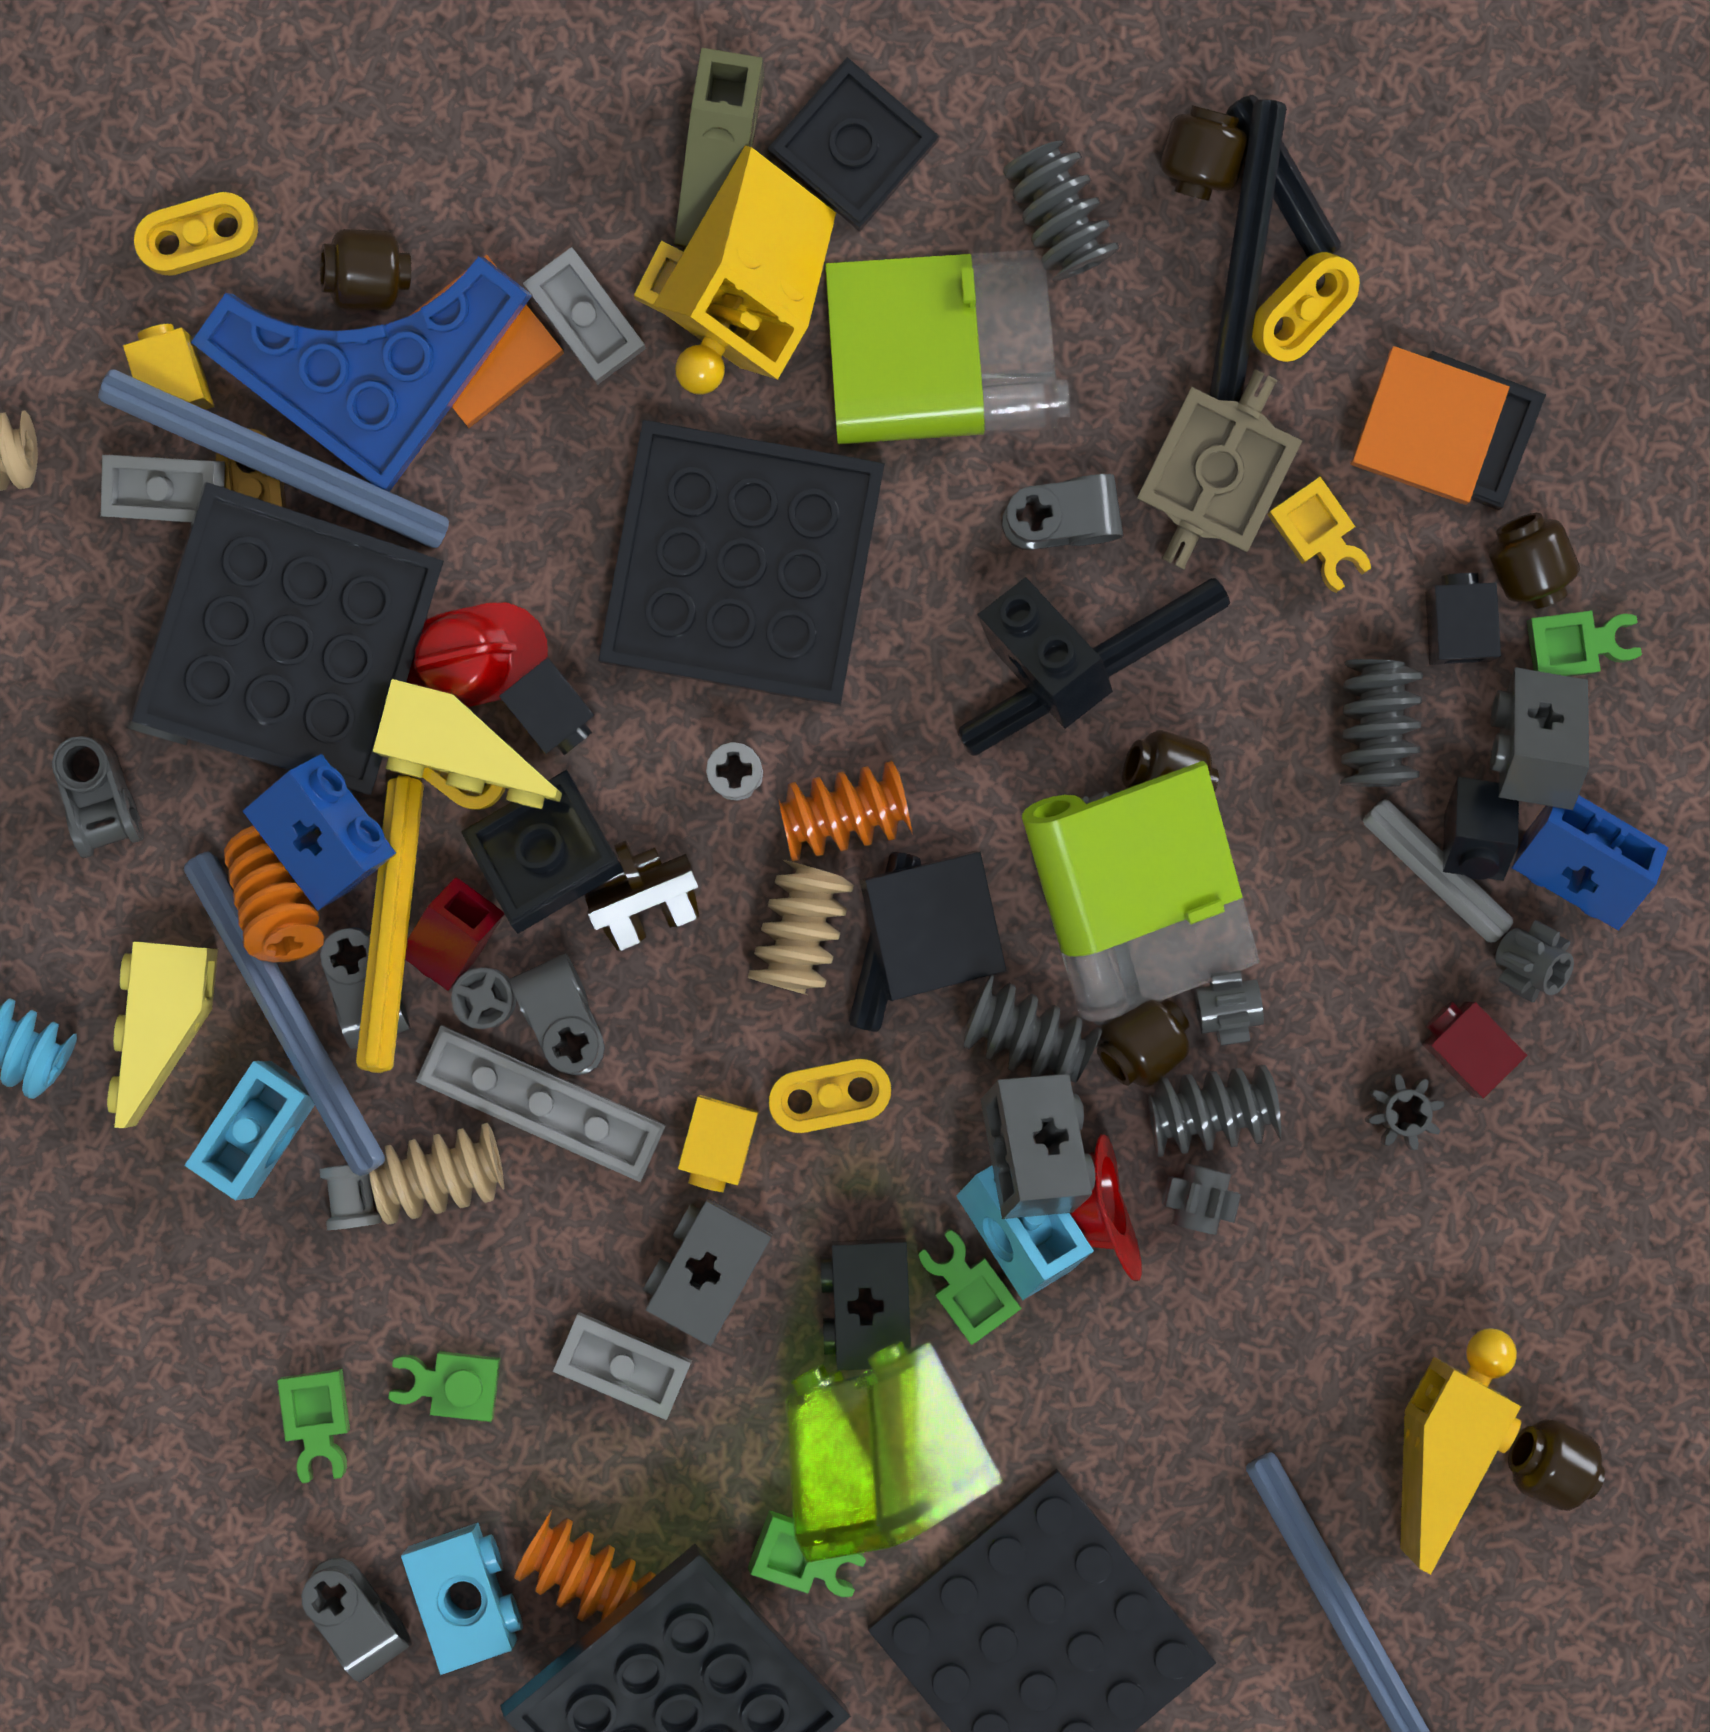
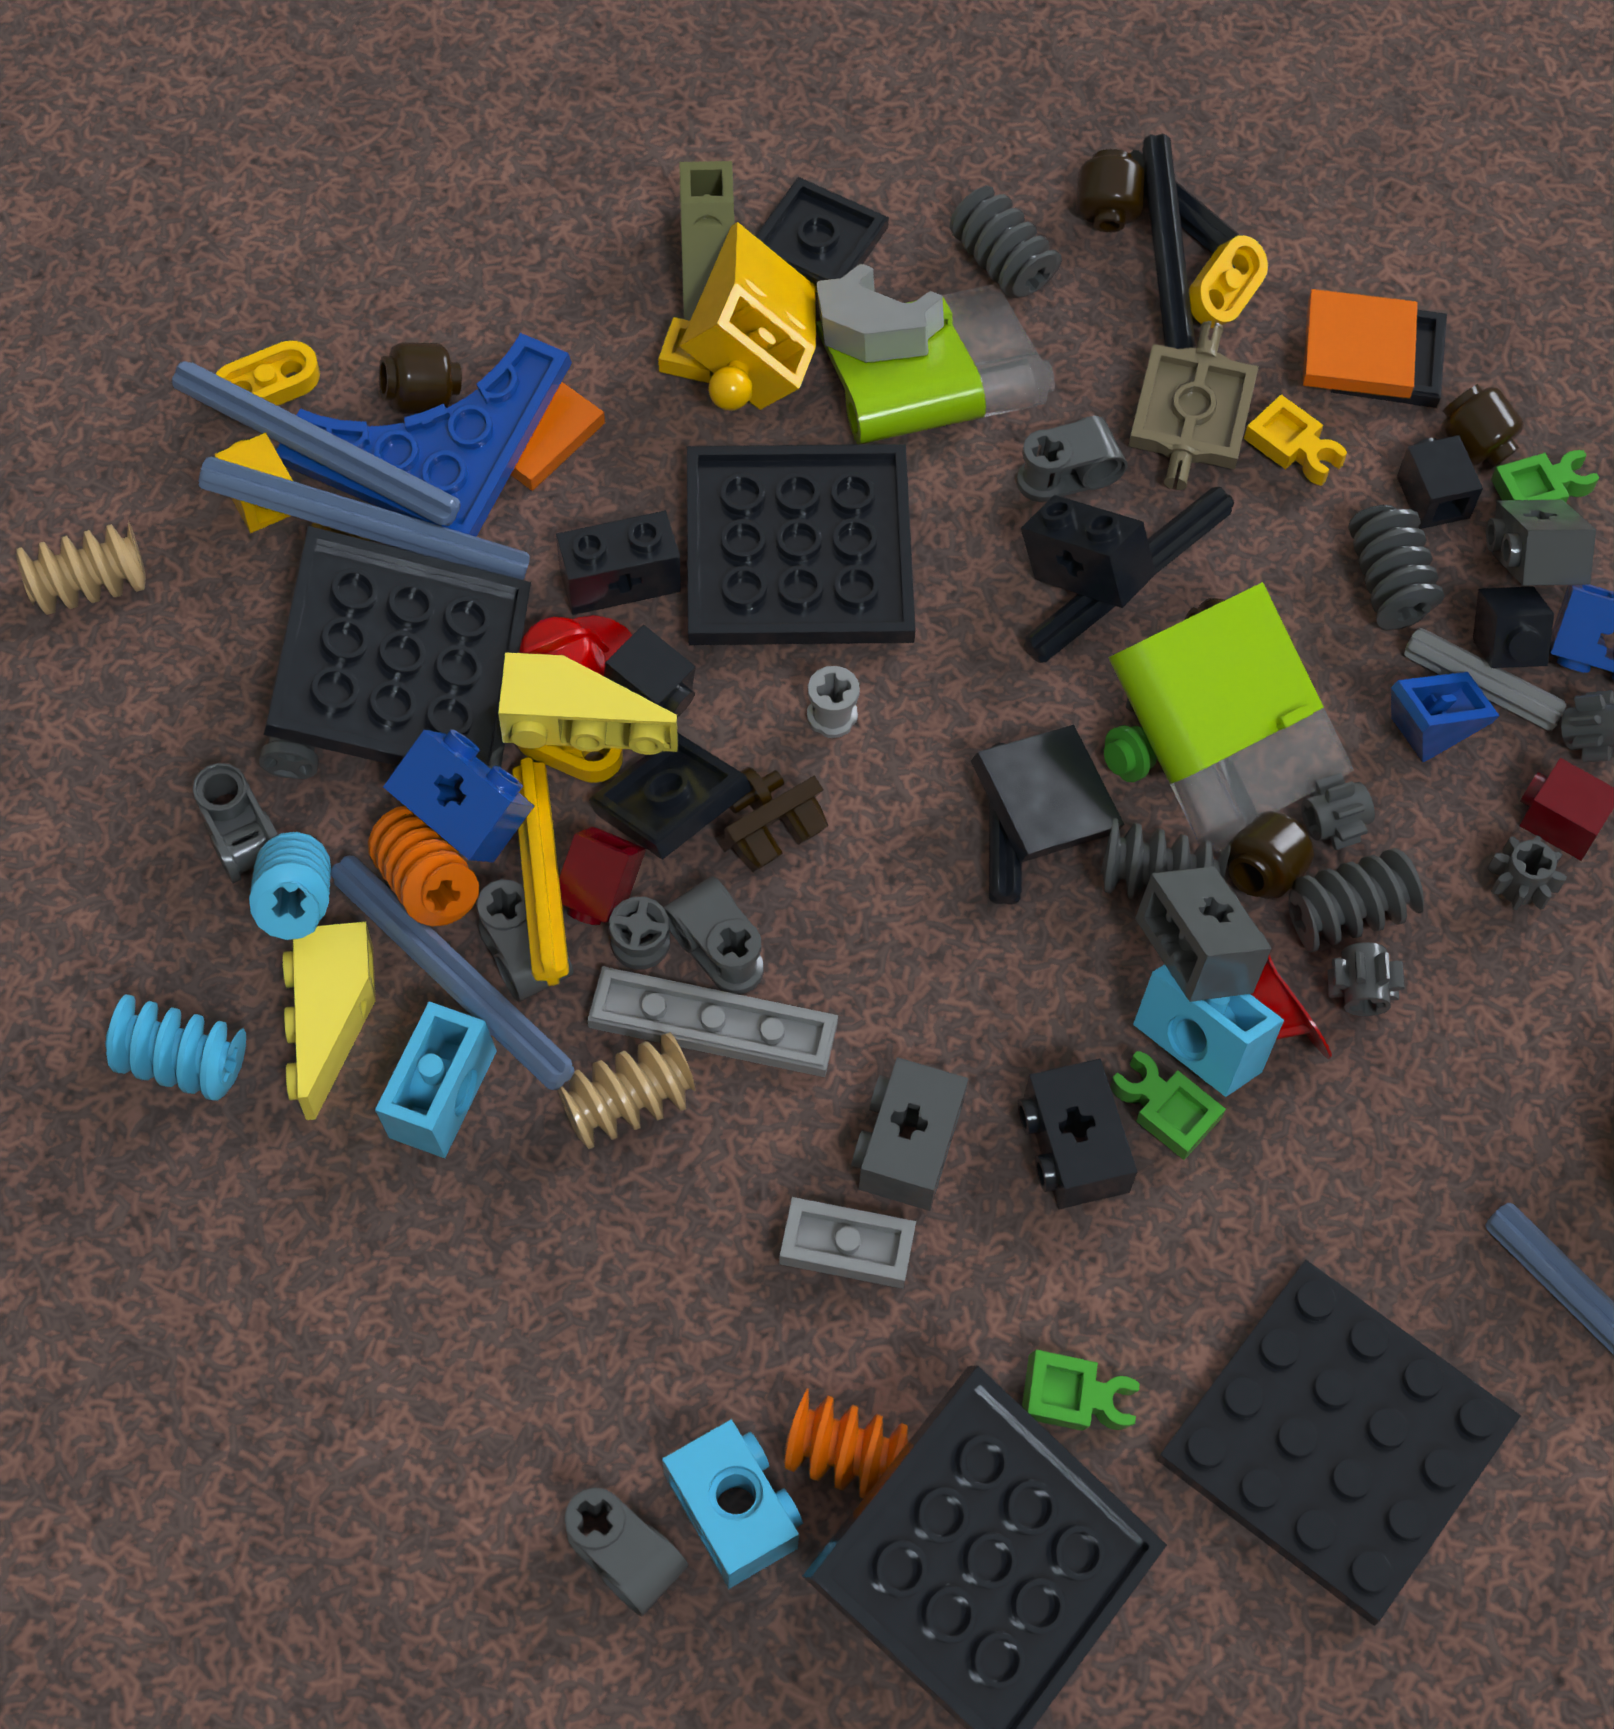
camera: 15 degrees left, 25 degrees down
(136, 898) = (290, 885): none -> medium azure piece
(155, 486) = (255, 567): light grey plate -> none
(233, 348) = (316, 443): none -> sand blue axle
(315, 1411) = (542, 1350): bright green plate -> none
(349, 1198) = (542, 1132): light grey bush -> none
(459, 1385) = (686, 1299): bright green plate -> none
(540, 558) = (619, 562): none -> black brick
(584, 315) = (619, 385): light grey plate -> none
(717, 1143) = (893, 1014): yellow brick -> none
(801, 928) = (925, 818): tan piece -> none
(830, 1095) = (985, 957): yellow plate -> none
(844, 810) = (941, 709): orange piece -> none
(877, 298) = (872, 324): none -> light grey piece
(880, 1453) = (1133, 1218): clear neon green windscreen -> none
(1027, 892) = (1129, 753): none -> bright green plate
(1375, 911) = (1439, 711): none -> blue slope

